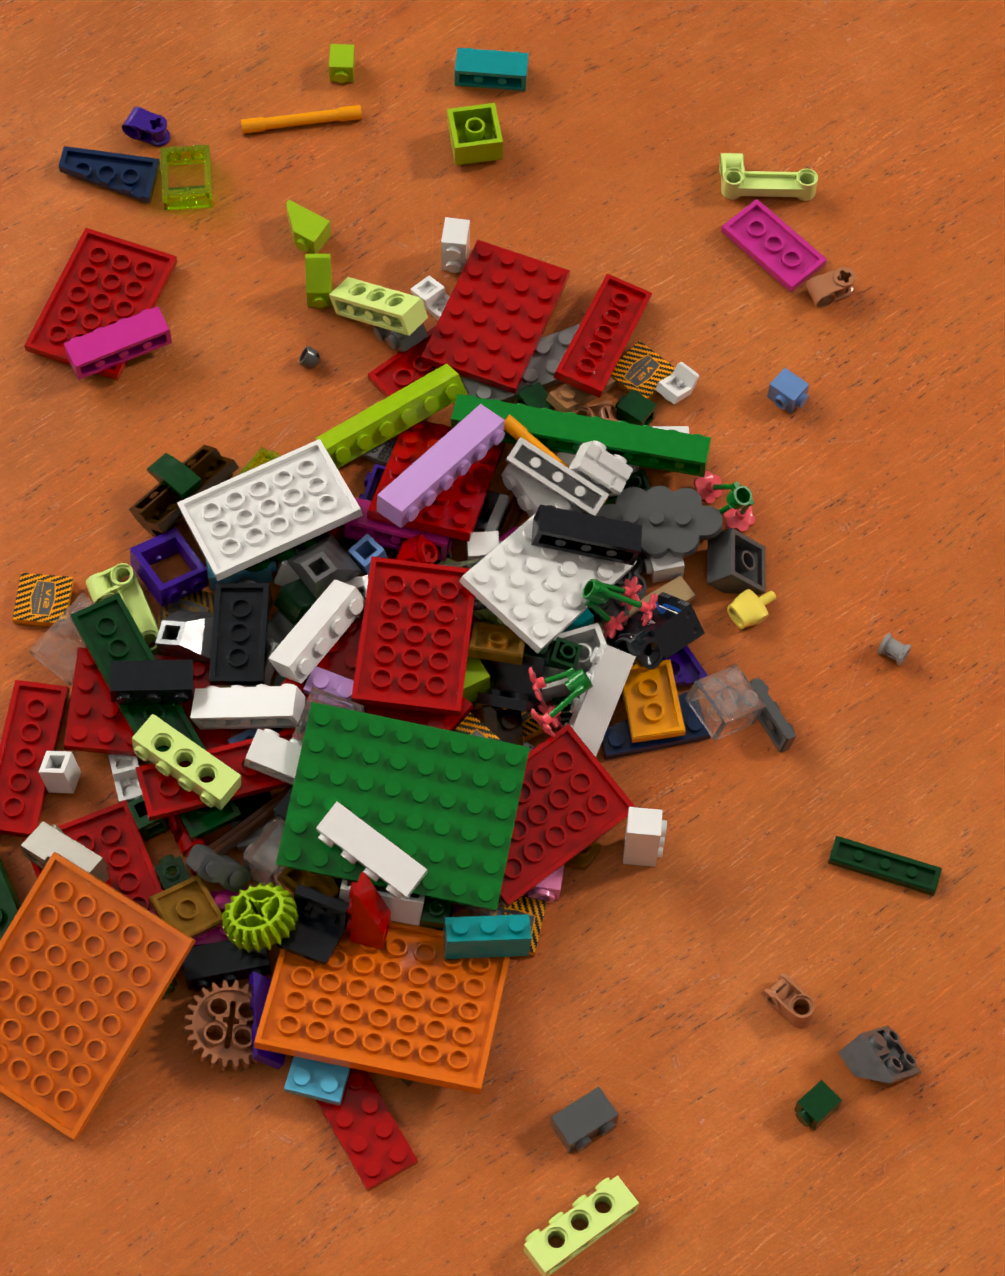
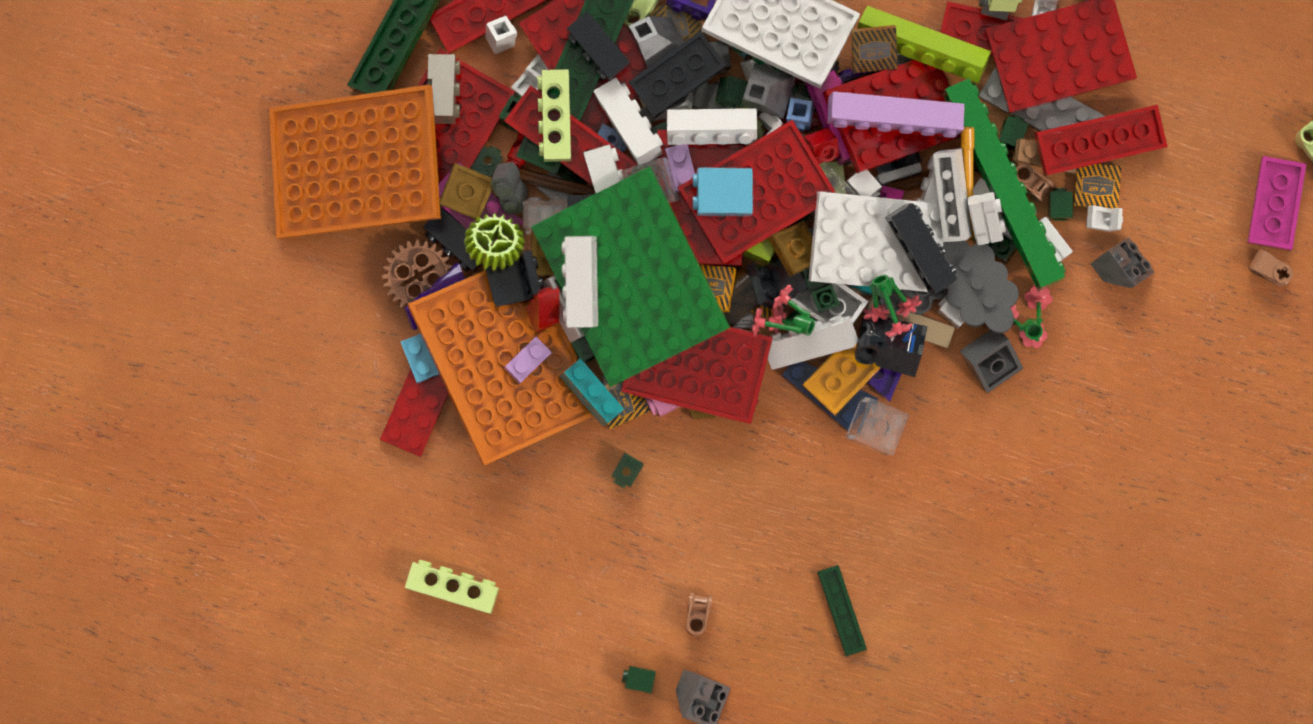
camera: 55 degrees right, 20 degrees up
(362, 451) = (874, 49): none -> tile
(392, 657) = (723, 192): none -> medium azure brick
(405, 974) = (527, 360): none -> lavender plate
(584, 1120) = (521, 541): dark grey brick -> none
(588, 954) = (627, 462): none -> clear green brick
(644, 836) = (733, 443): white brick -> none
(733, 399) = (1123, 265): none -> flat silver slope
(749, 608) = (964, 392): light yellow piece -> none
(772, 720) = (886, 475): dark grey hinge -> none
(788, 391) = (1158, 299): medium blue brick -> none
(894, 649) = (1007, 510): light grey bush -> none

